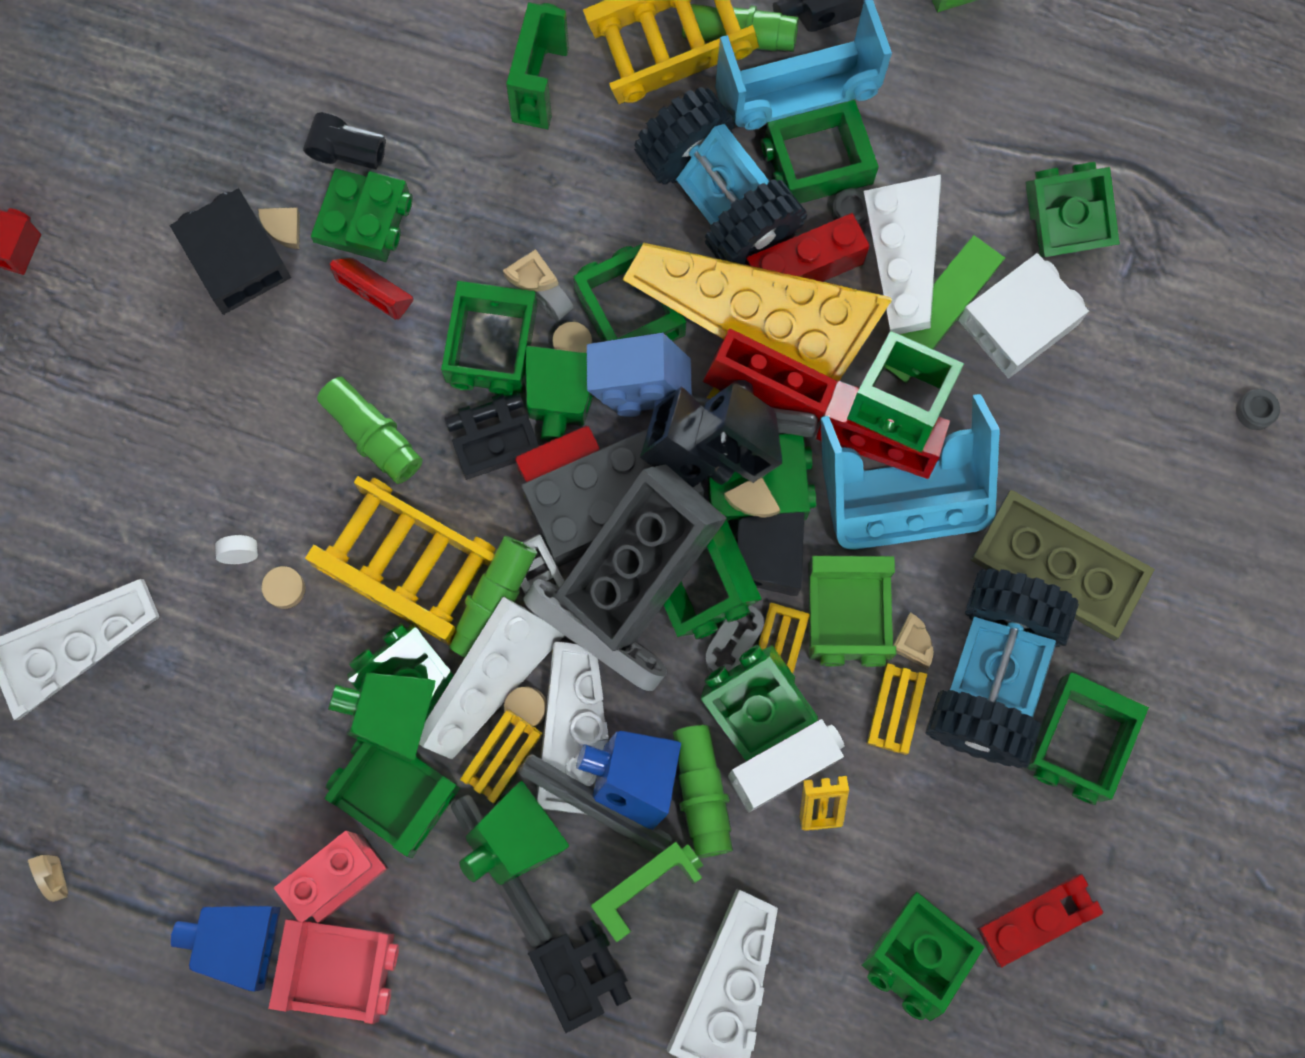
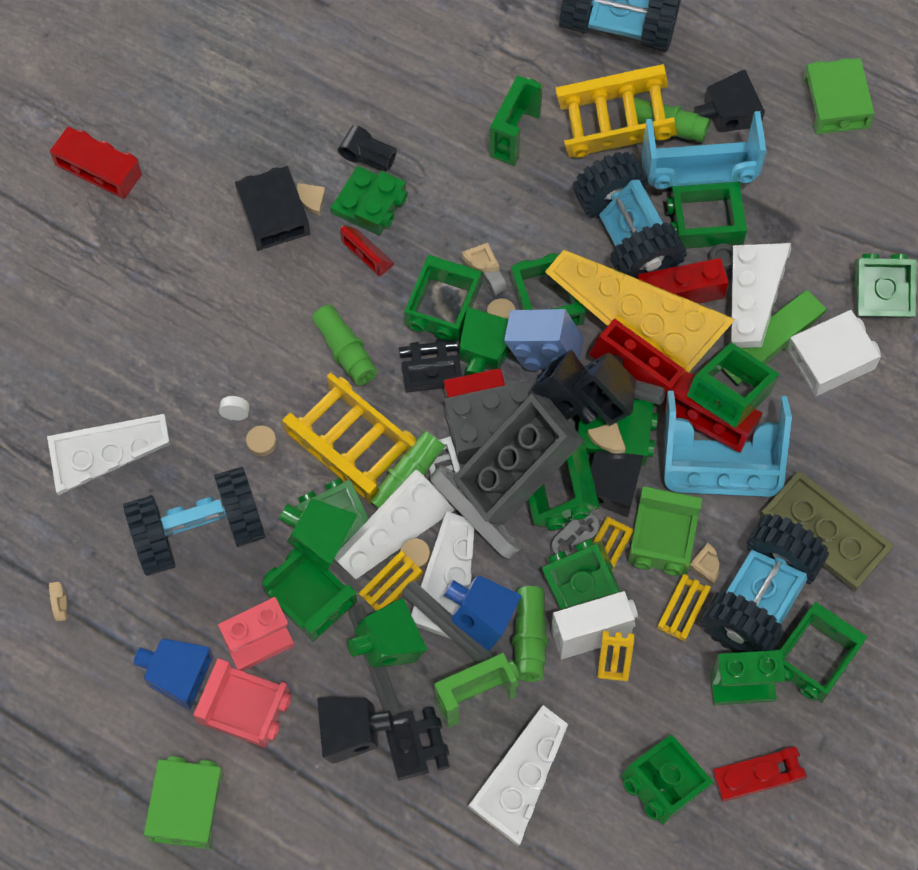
camera: 15 degrees right, 10 degrees down
(154, 755) = (151, 531): none -> black plate
(486, 975) = (350, 727): none -> black torso
(1006, 799) = (746, 677): none -> green panel

